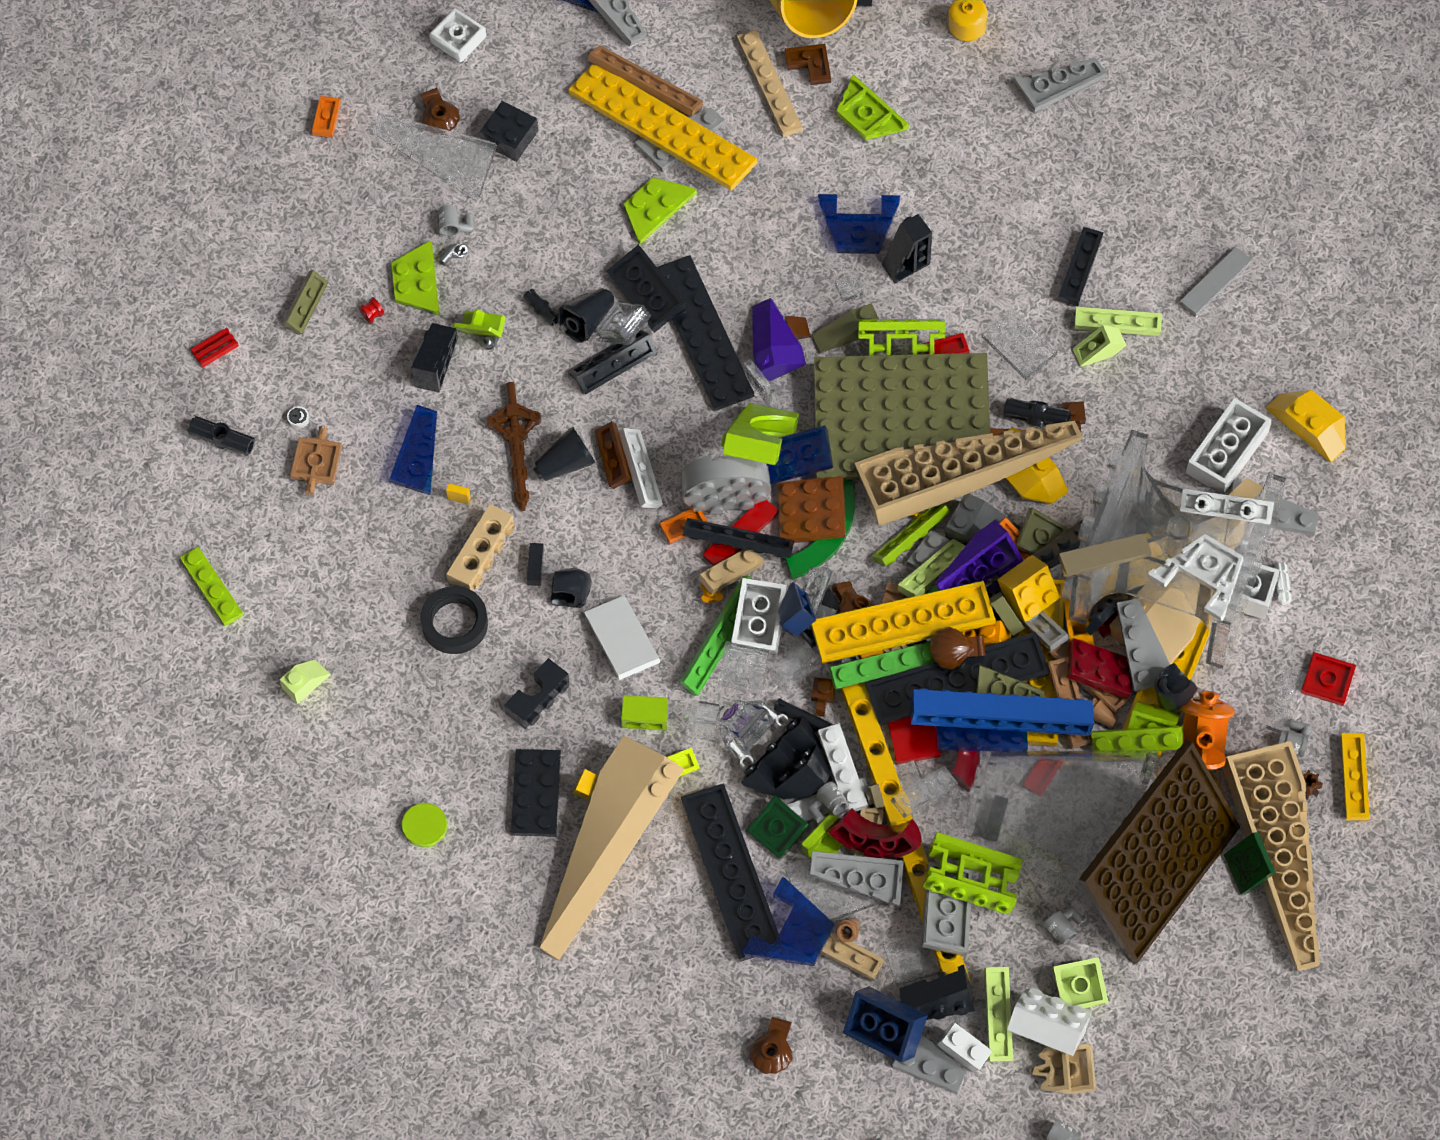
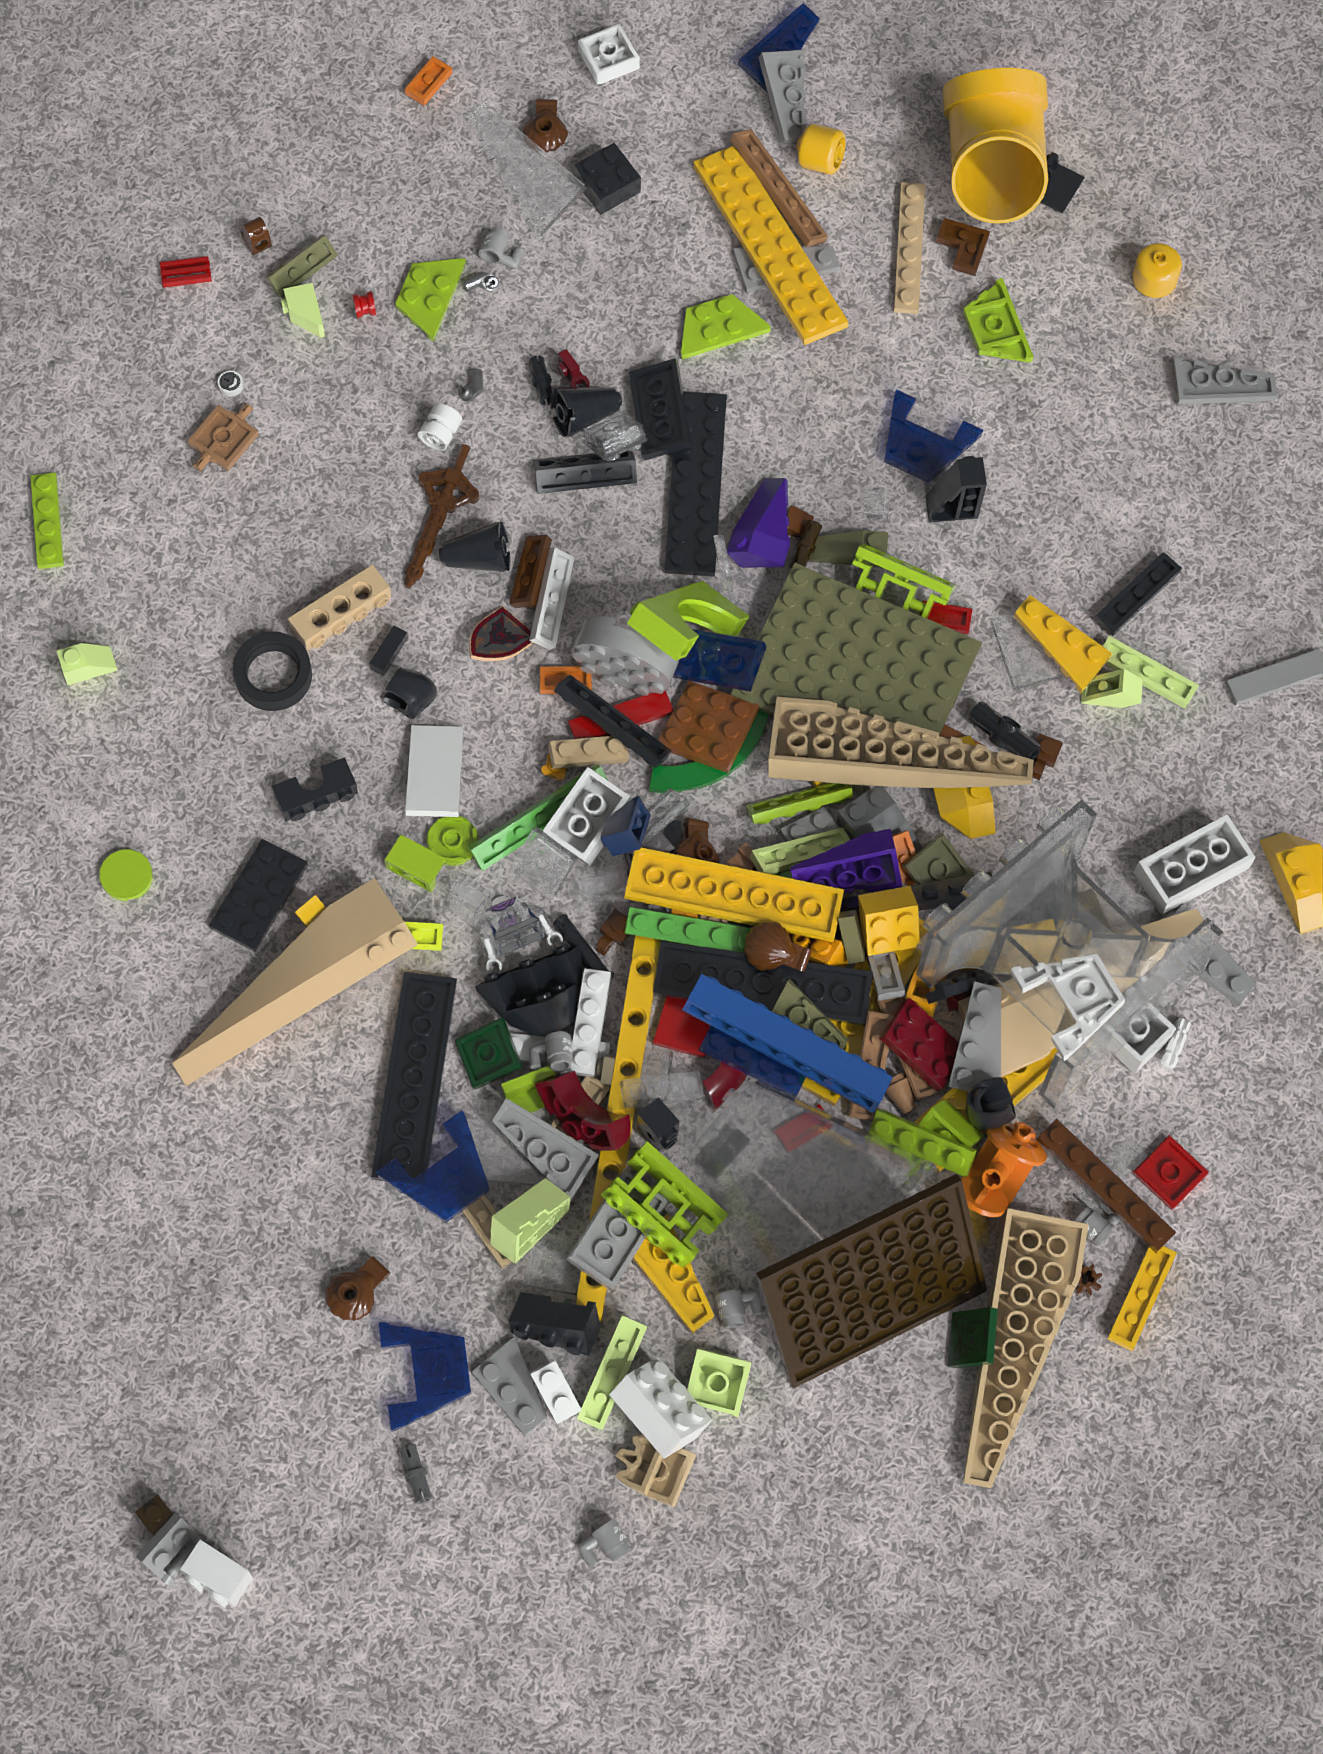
camera: 20 degrees right, 5 degrees up
(210, 431) = (133, 357): black piece -> none
(255, 293) = (255, 232): none -> reddish brown leg
(326, 334) = (303, 308): none -> yellowish green slope
(415, 459) = (329, 477): clear blue wing -> none
(434, 357) = (400, 383): black wedge -> none
(458, 493) = (348, 539): yellow tile -> none
(481, 323) = (468, 369): lime panel -> none
(483, 377) = (441, 425): none -> white wheel
(557, 287) = (568, 367): none -> dark red plate
(616, 515) = (499, 637): none -> shield
(662, 36) = (821, 148): none -> yellow head
(662, 681) = (444, 839): none -> lime tile
(812, 340) = (806, 544): none -> dark brown pin
(848, 929) = (499, 1198): medium nougat cone -> none
(866, 1075) = (438, 1370): none -> clear blue wing
(876, 933) = (528, 1219): none -> yellowish green wedge
(885, 1024) = (482, 1325): dark blue brick -> none
(936, 817) = (658, 1125): none -> black brick
(1010, 930) = (675, 1284): none -> yellow wing
(1053, 328) = (1069, 647): none -> yellow wing
(1104, 554) = (974, 925): dark tan tile -> none
(1226, 506) = (1138, 934): white plate -> none
(1288, 708) = (1106, 1185): none -> reddish brown plate

